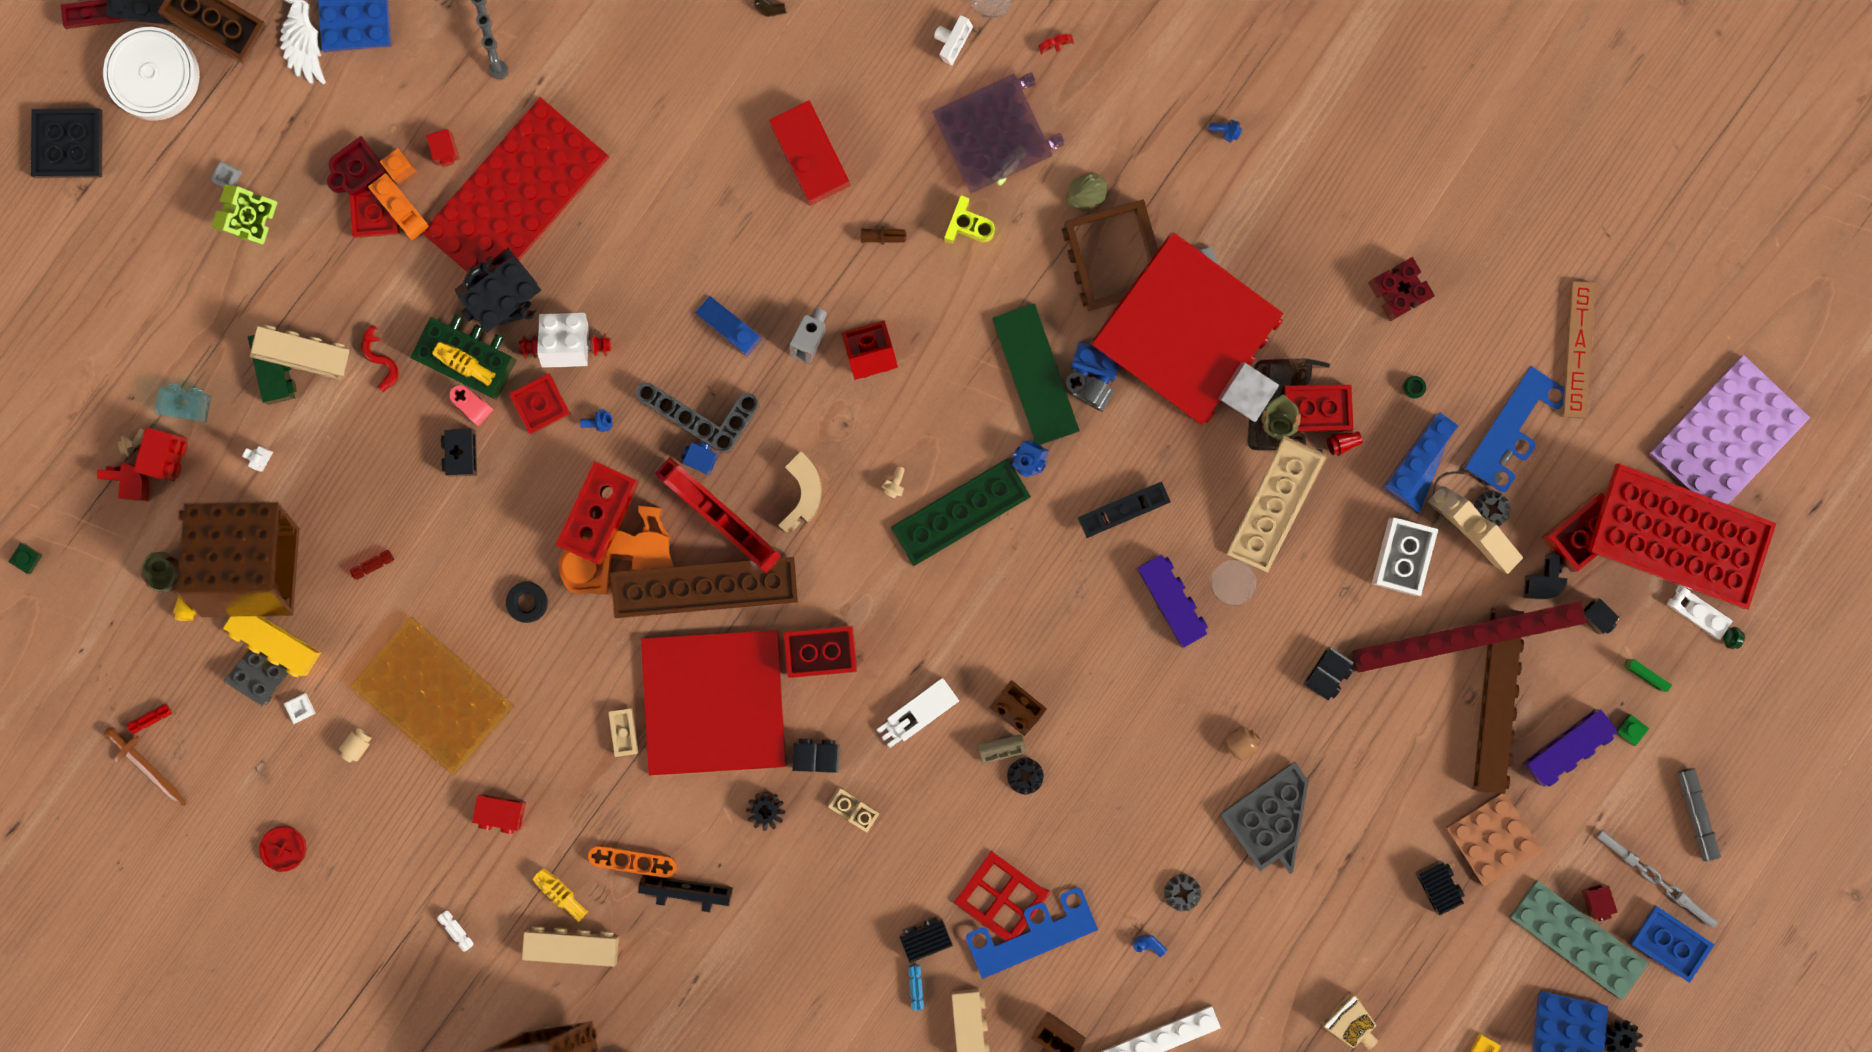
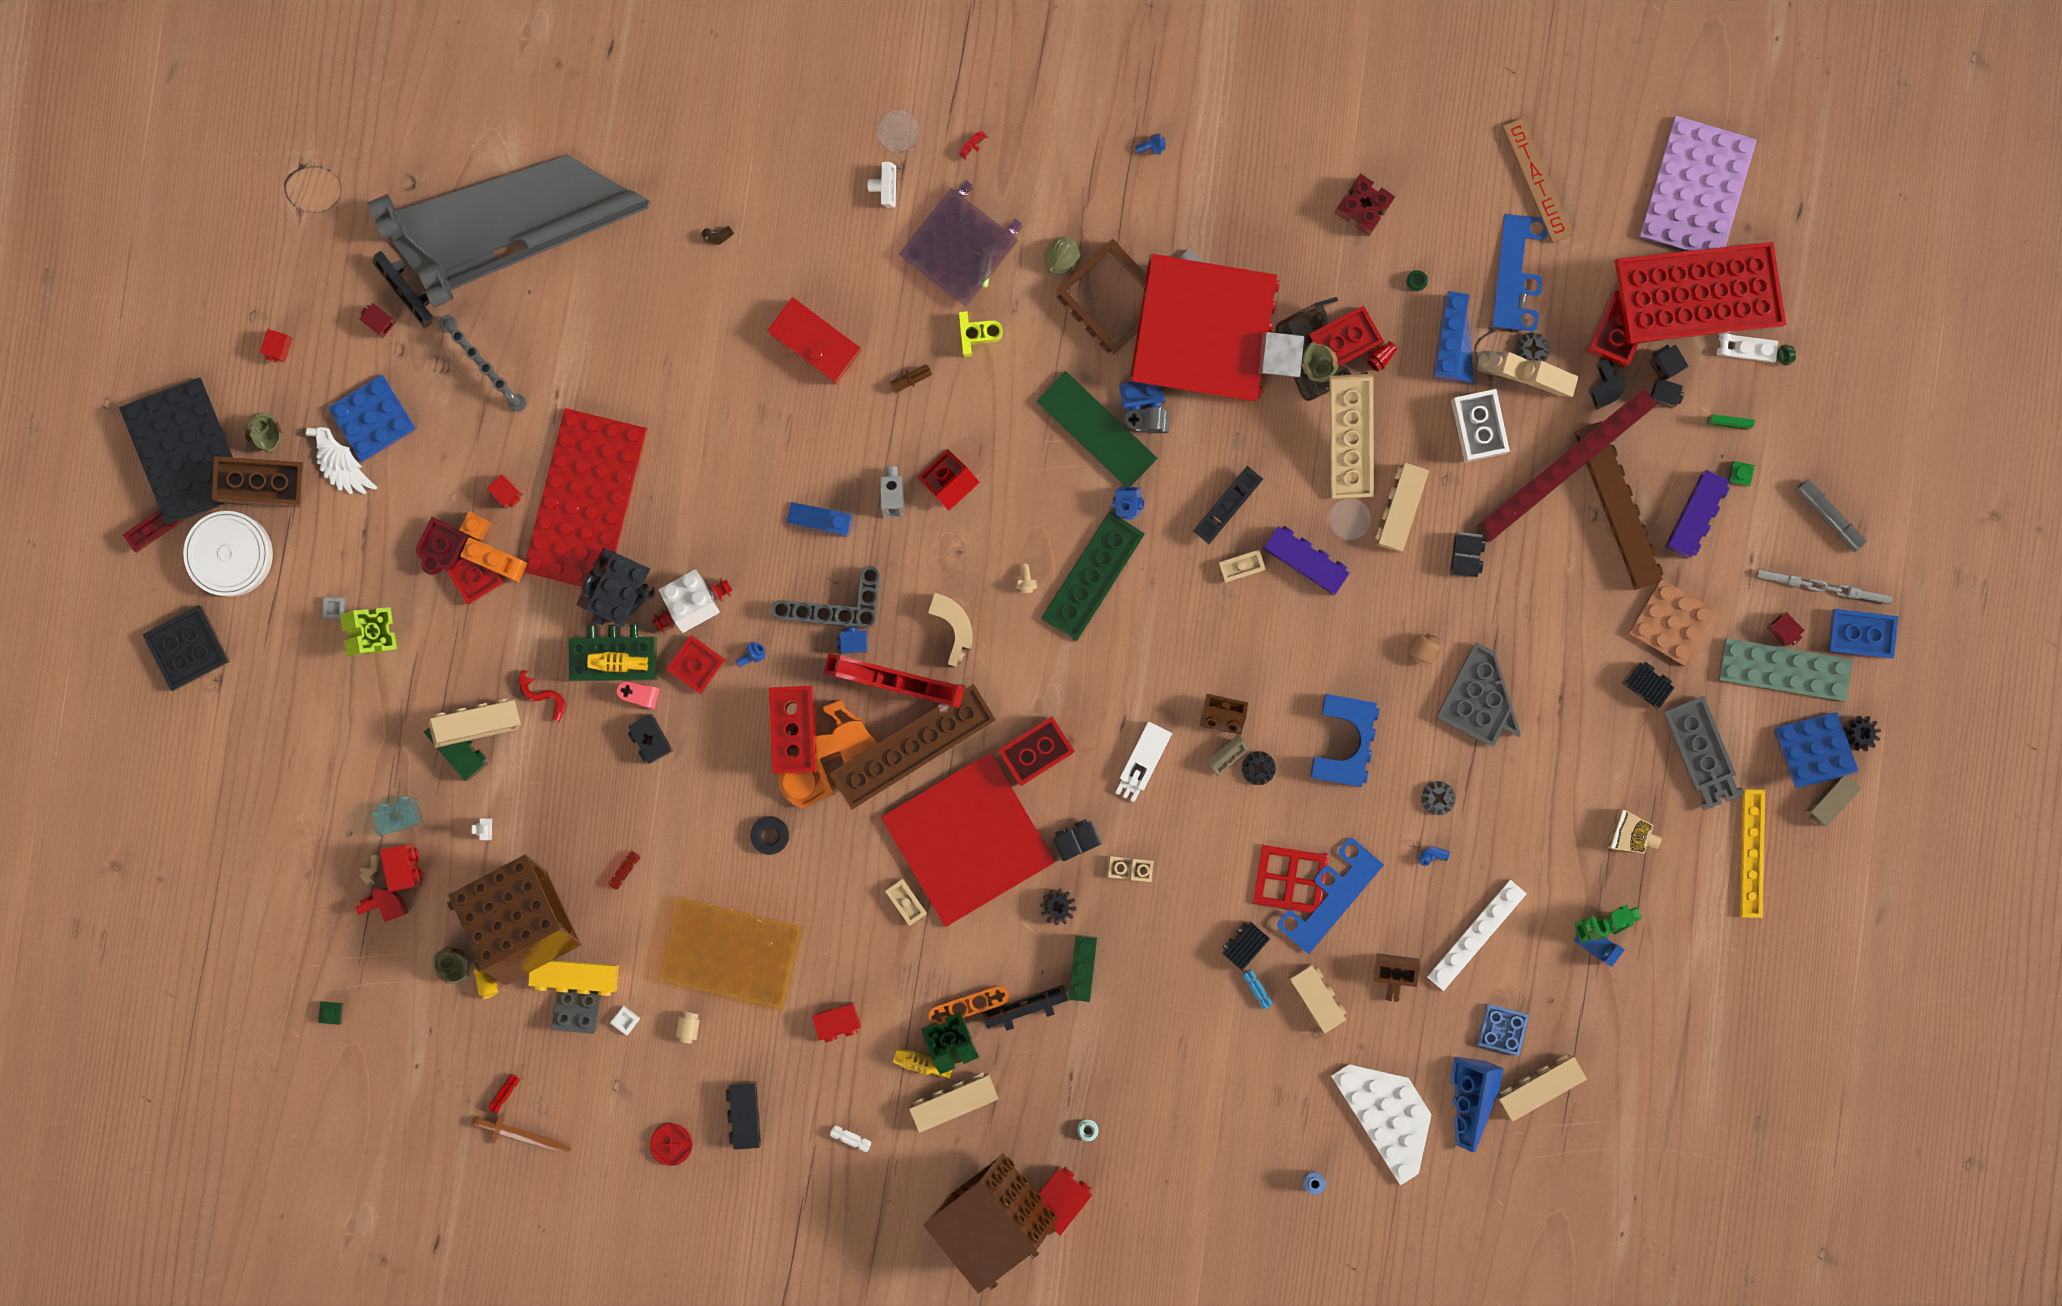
camera: 25 degrees left, 0 degrees up
(365, 857) = (743, 1115): none -> black brick
(594, 889) = (950, 1043): none -> dark green brick
(682, 1045) = (1087, 1137): none -> light aqua plate
(759, 882) = (1082, 968): none -> dark green brick
(1107, 575) = (1242, 566): none -> tan plate
(1114, 823) = (1362, 716): none -> blue arch
(1289, 597) = (1402, 508): none -> tan brick
(1459, 978) = (1703, 752): none -> dark grey hinge
(1616, 587) = (1668, 362): none -> black brick

